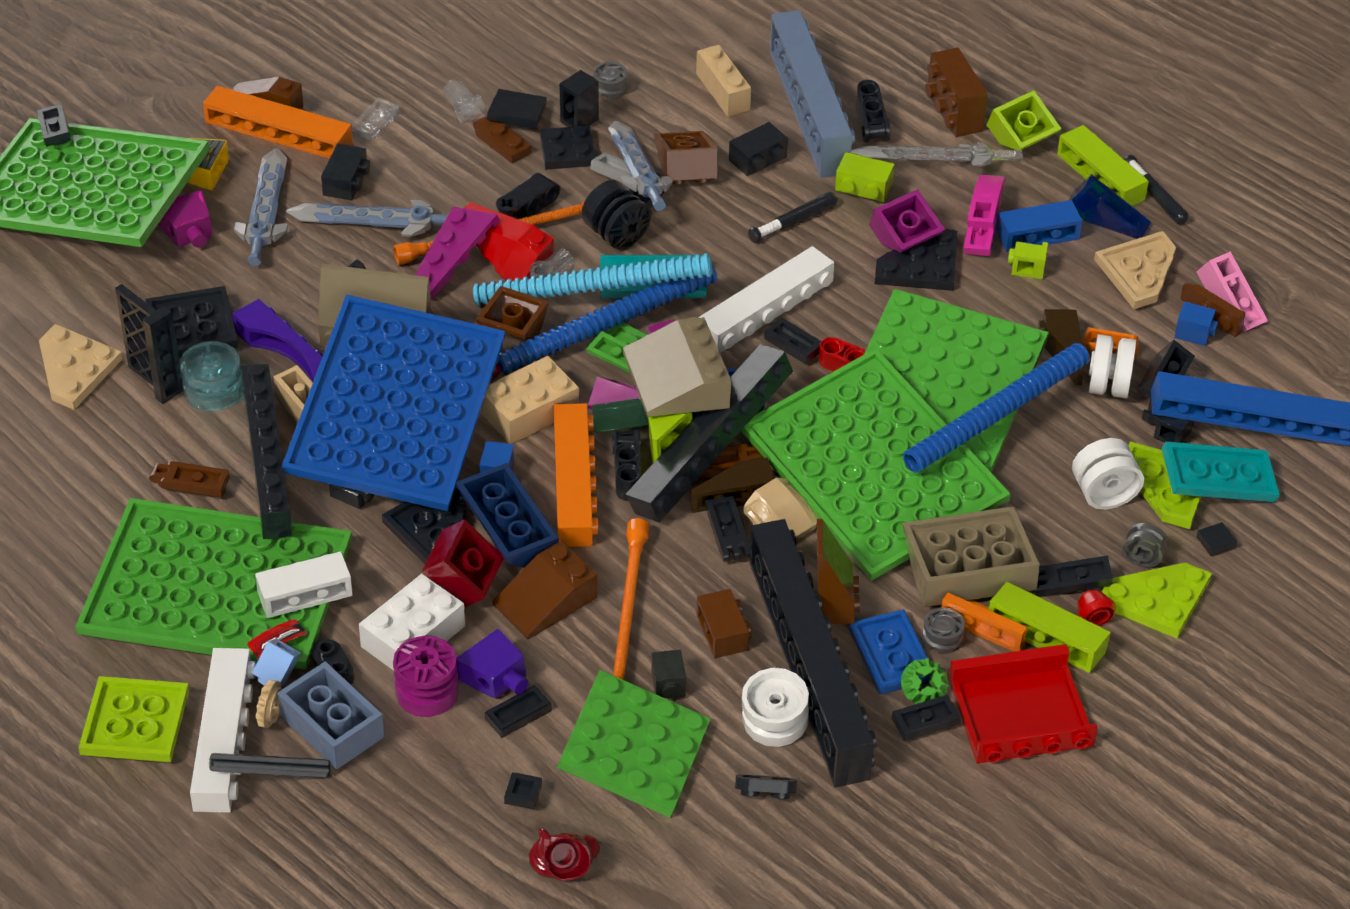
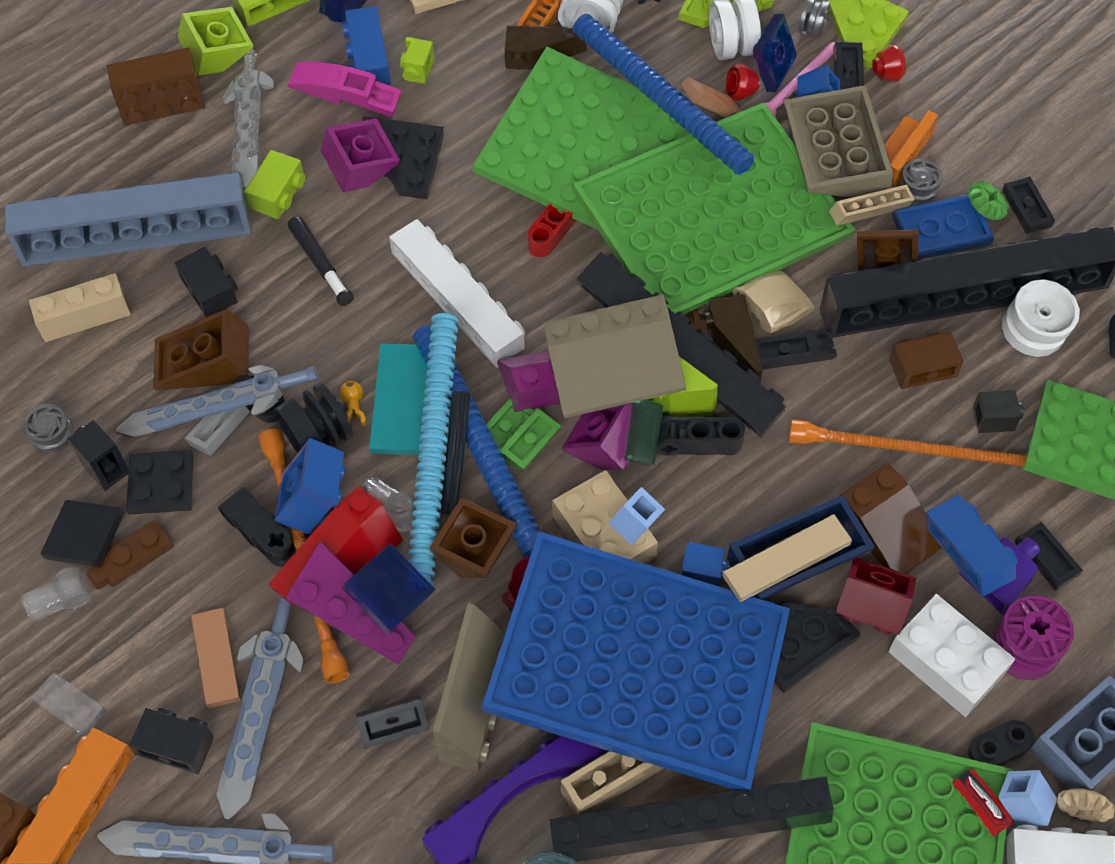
camera: 85 degrees left, 15 degrees up
(303, 584) = (914, 768): white brick -> none
(422, 189) = (215, 658): none -> nougat tile
(461, 261) = (388, 588): none -> clear blue plate
(491, 495) = (787, 558): none -> tan tile
(508, 622) = (972, 545): none -> blue brick
(520, 386) = (636, 516): none -> light blue brick
(553, 210) = (310, 486): none -> blue brick
(573, 475) = (724, 488): orange brick -> none
(595, 297) = (455, 450): none -> black axle
(655, 244) = (352, 396): none -> light orange arm
(793, 340) = (528, 263): black piece -> none
(871, 111) = (160, 168): black piece -> none
(898, 581) = (871, 205): none -> tan piece
(1004, 453) = (710, 98): none -> nougat tile
(1020, 704) = (1008, 133): red panel -> none
(1046, 490) = (741, 82): none -> red cone
(1046, 544) = (817, 81): none -> blue brick
(1052, 625) = (916, 95): lime brick -> none
(1057, 536) = (791, 87): none -> bright pink piece
(1081, 506) = (774, 52): none -> clear blue plate

